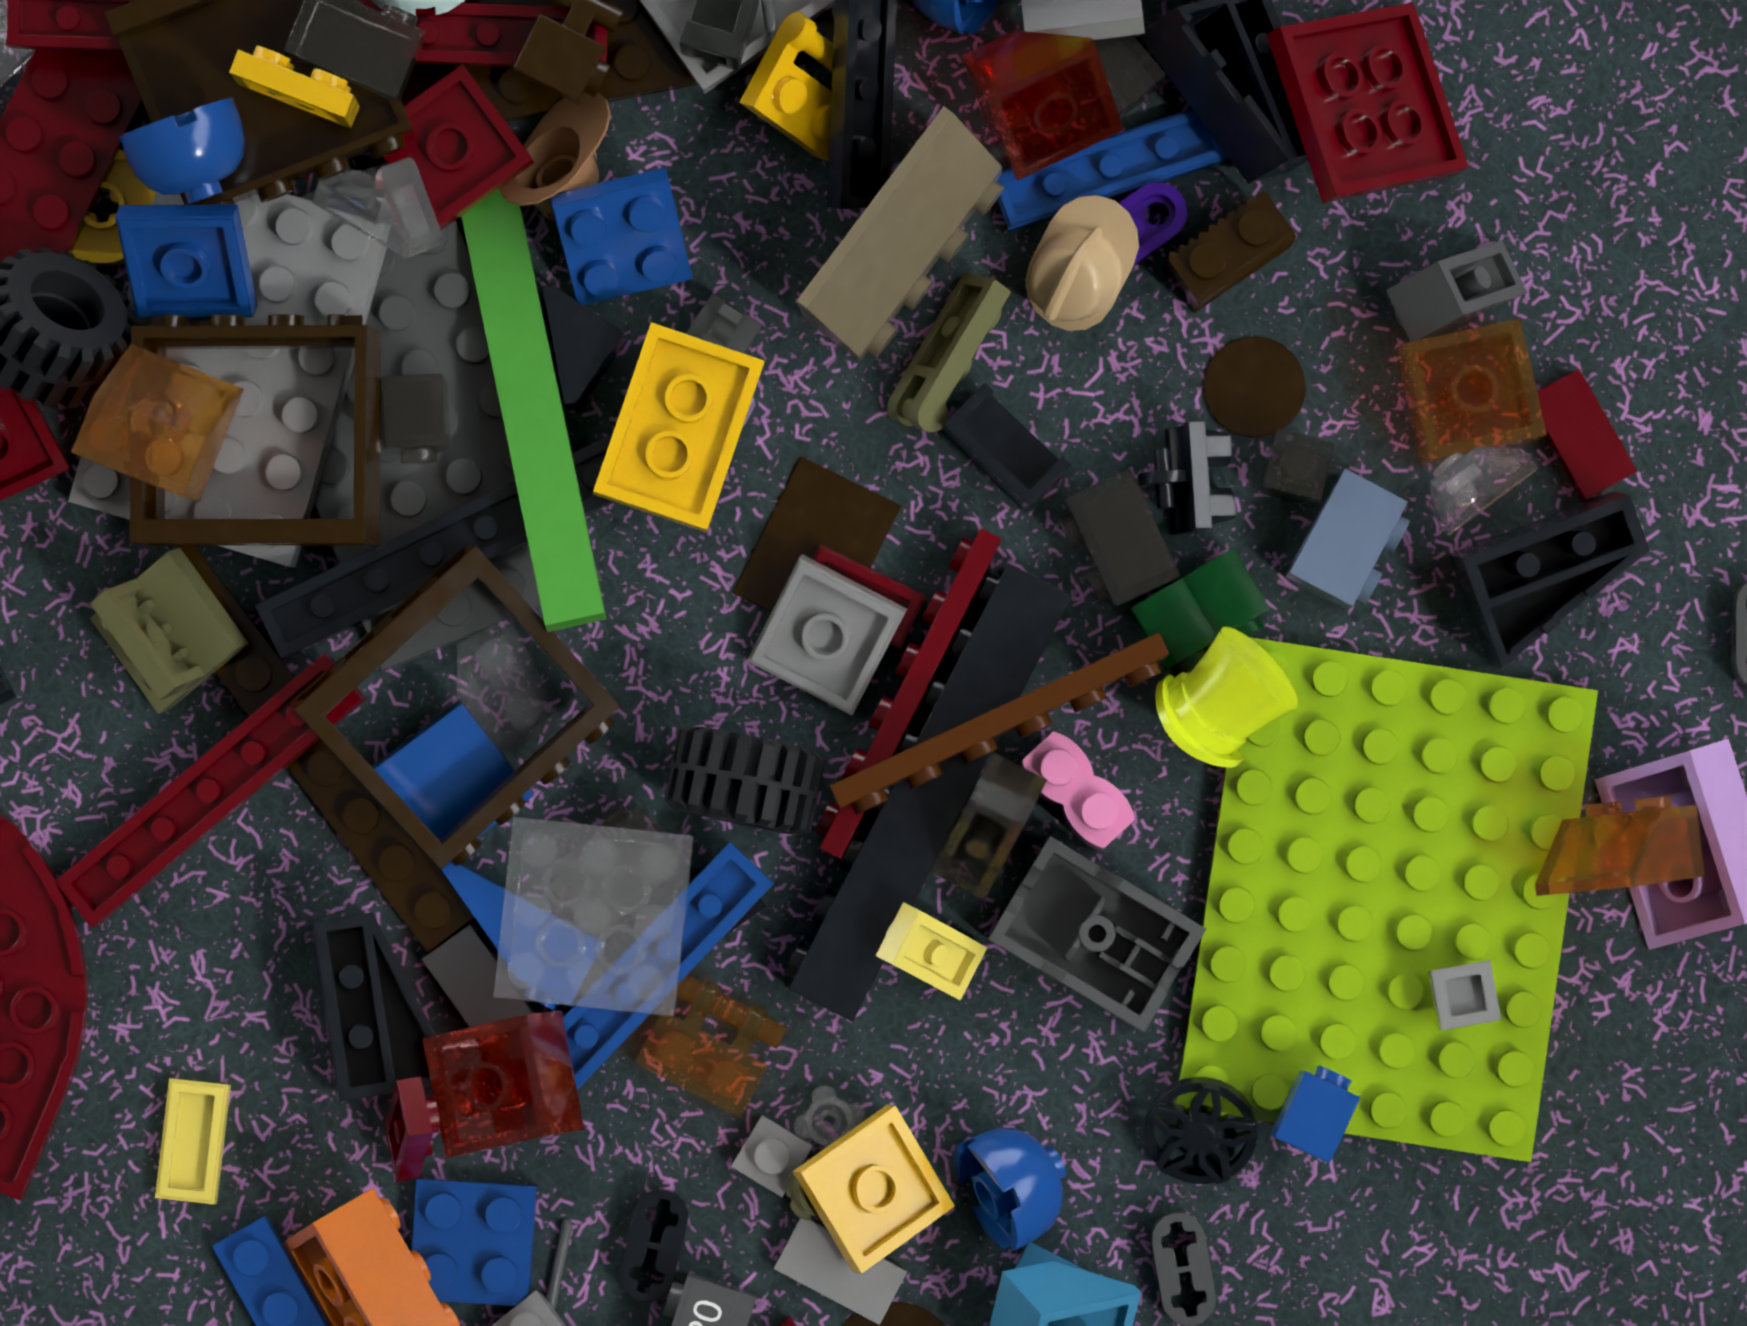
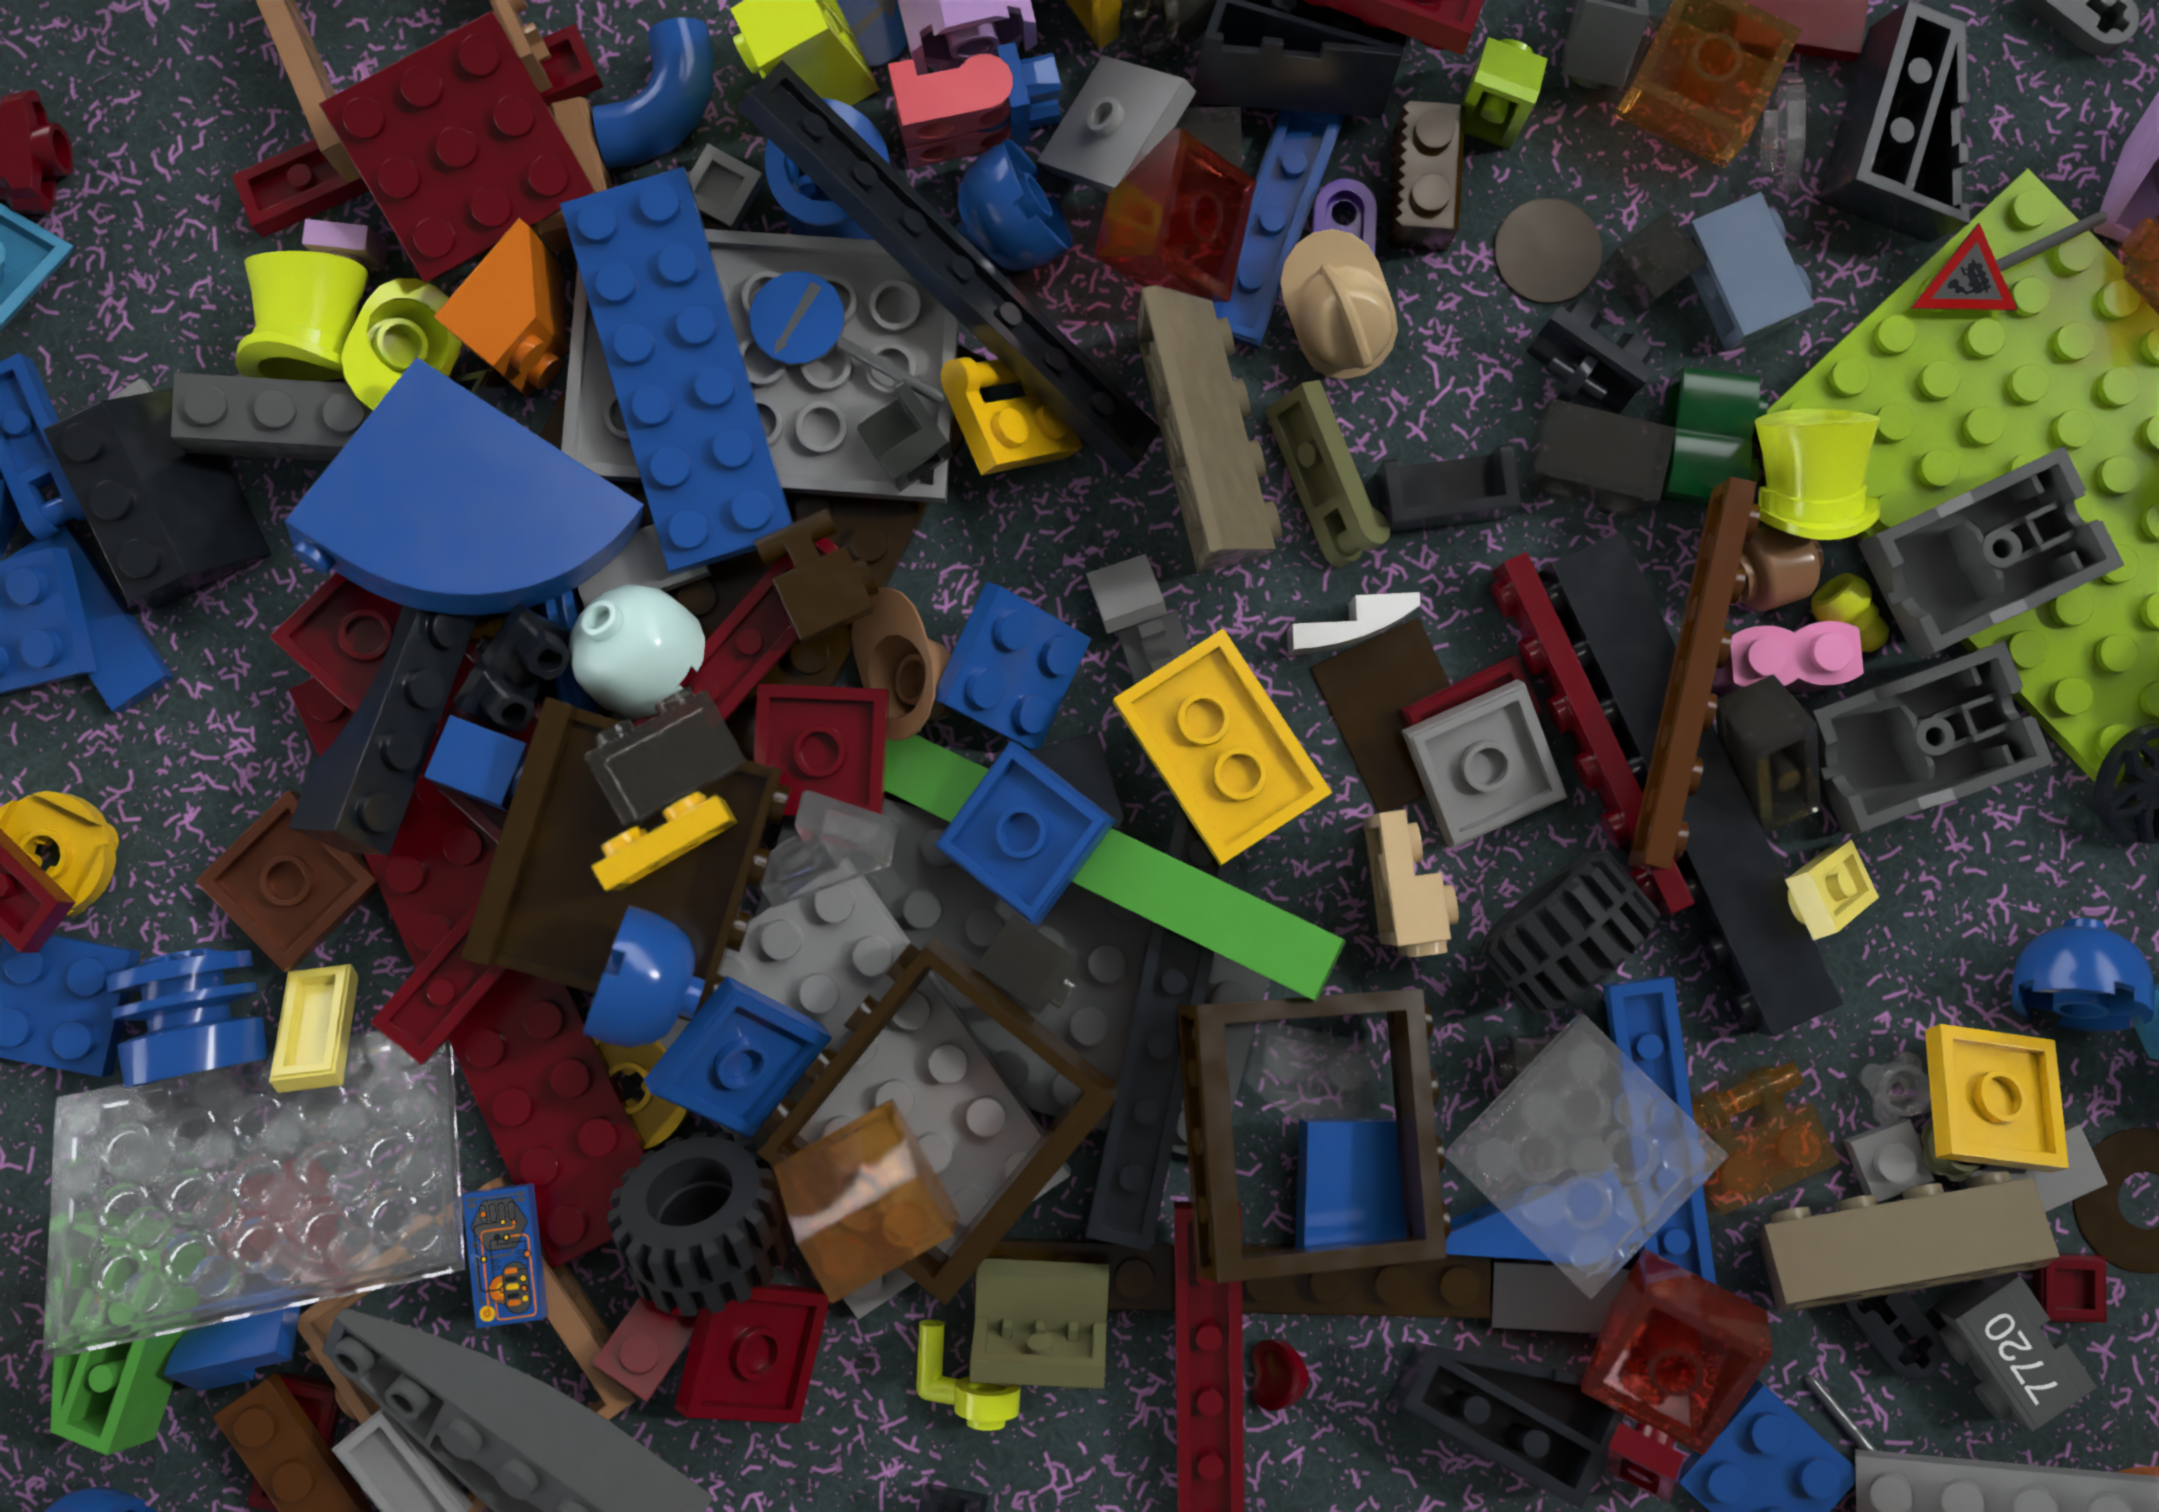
camera: 45 degrees left, 0 degrees up
(79, 635) = (982, 1404): none -> neon yellow plate
(266, 833) = (1279, 1375): none -> dark red piece
(507, 338) = (1025, 833): none -> blue tile
(675, 655) = (1409, 907): none -> tan plate
(713, 1199) = (1907, 1242): none -> dark tan brick
(745, 277) = (1126, 593): none -> light grey tile
(866, 467) = (1367, 618): none -> white slope
(1134, 732) = (1779, 568): none -> medium nougat head
(1155, 813) = (1849, 600): none -> neon yellow piece
(1261, 868) = (1989, 554): none -> dark grey piece
(1338, 253) = (1502, 91): none -> lime slope
(1474, 709) = (1974, 278): none -> piece

